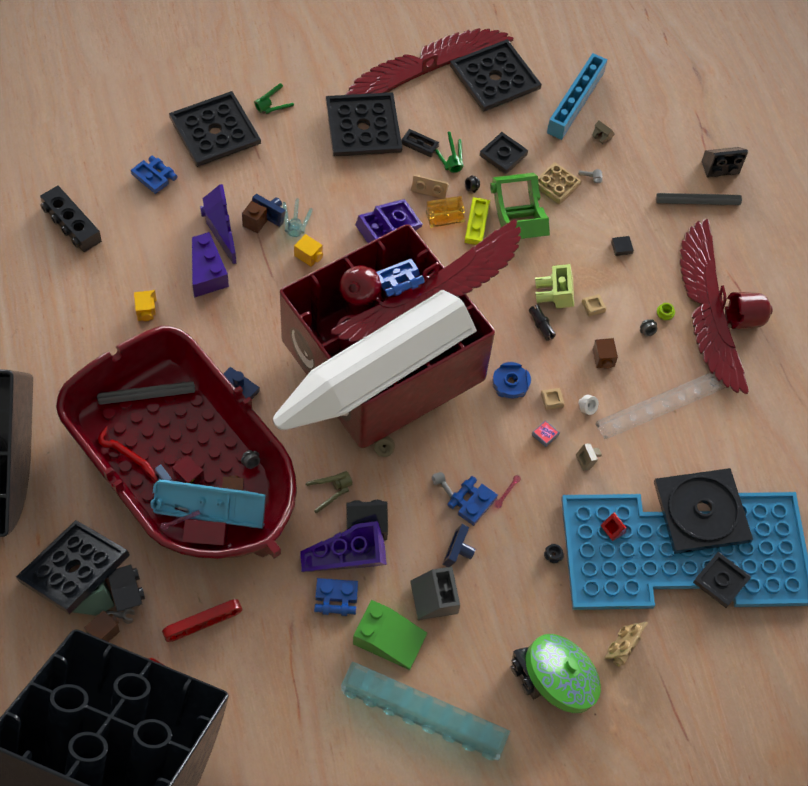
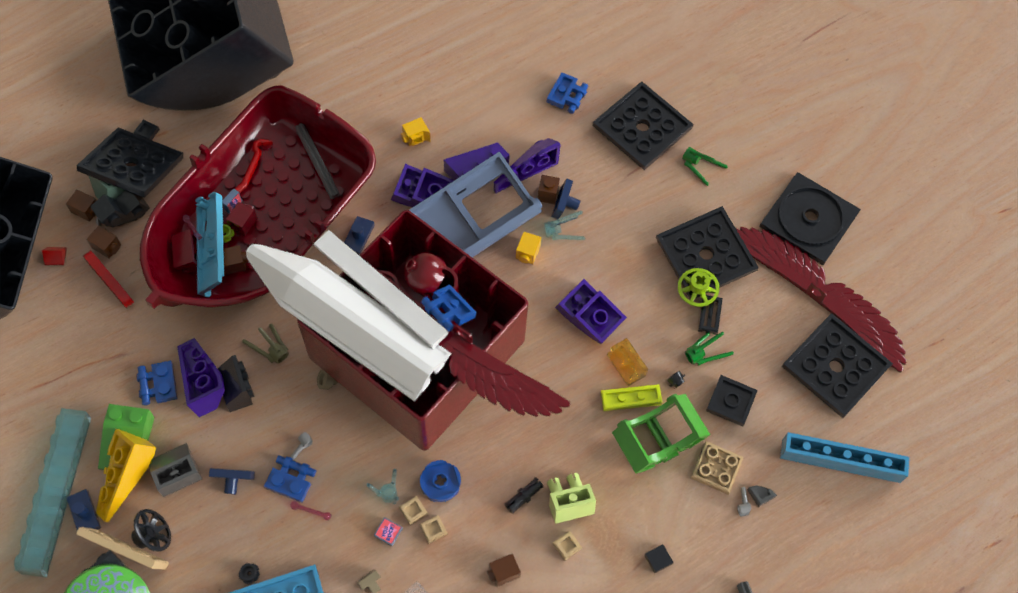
camera: 75 degrees right, 5 degrees up
(28, 551) = (146, 130): none -> black tile
(70, 218) = (488, 45): black brick -> none
(157, 615) = (104, 242): none -> reddish brown brick
(212, 316) = (417, 185): none -> dark purple slope
(256, 304) = (451, 219): none -> sand blue piece
(355, 60) = (814, 237): none -> black piece
(359, 325) = (381, 289): none -> white tile
(395, 136) = (698, 284): none -> lime wheel
(422, 635) = (127, 464): none -> yellow wedge
(429, 186) = (655, 330): tan hinge -> none
(453, 689) = (83, 510): none -> dark blue tile
(495, 630) = (148, 532): none -> black wheel
(506, 650) = (123, 548): none -> tan tile
(510, 421) = (388, 491): none -> clear light blue plant
(531, 409) = (413, 510): none -> tan tile
(588, 162) = (761, 494): none -> dark grey tile
(588, 404) = (433, 567): white tile -> none
(606, 132) = (811, 500): dark tan tile -> none

